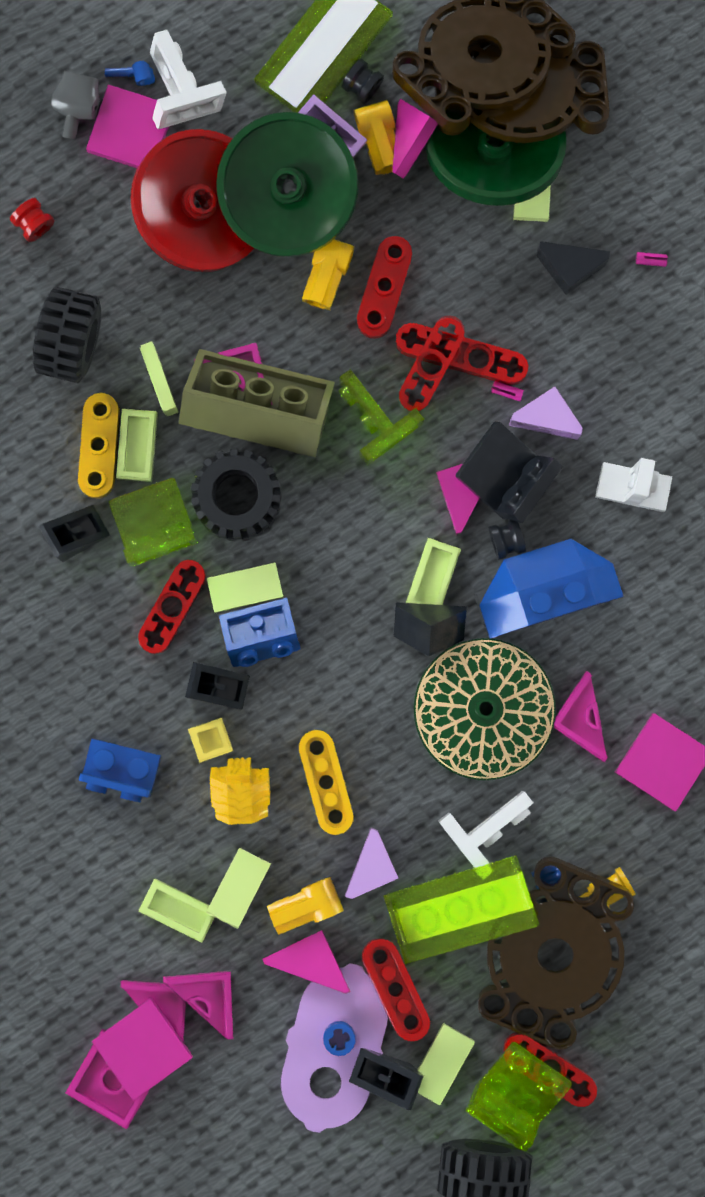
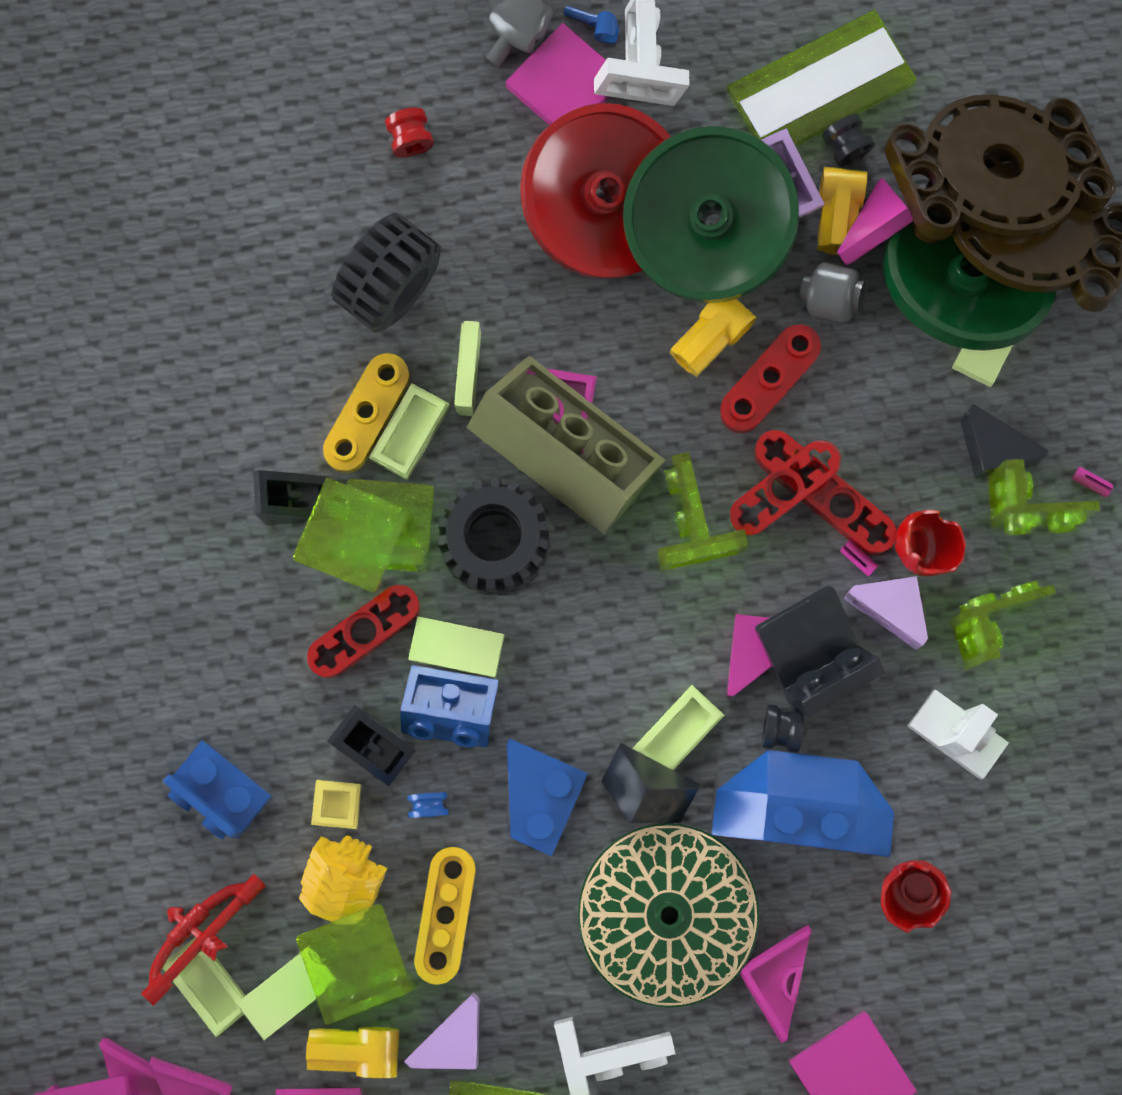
camera: 30 degrees right, 5 degrees down
(133, 540) = (351, 535): none -> clear neon green bracket
(163, 878) = (205, 941): none -> red piece
(277, 710) = (427, 805): none -> blue bush
(278, 845) = (354, 964): none -> clear neon green bracket
(355, 667) = (540, 796): none -> blue wing
(403, 202) = (834, 292): none -> dark grey head
(554, 358) = (930, 544): none -> red hair
(595, 297) = (1008, 505): none -> clear neon green bracket
(621, 411) = (980, 639): none -> clear neon green bracket
(653, 615) = (915, 895): none -> red hair

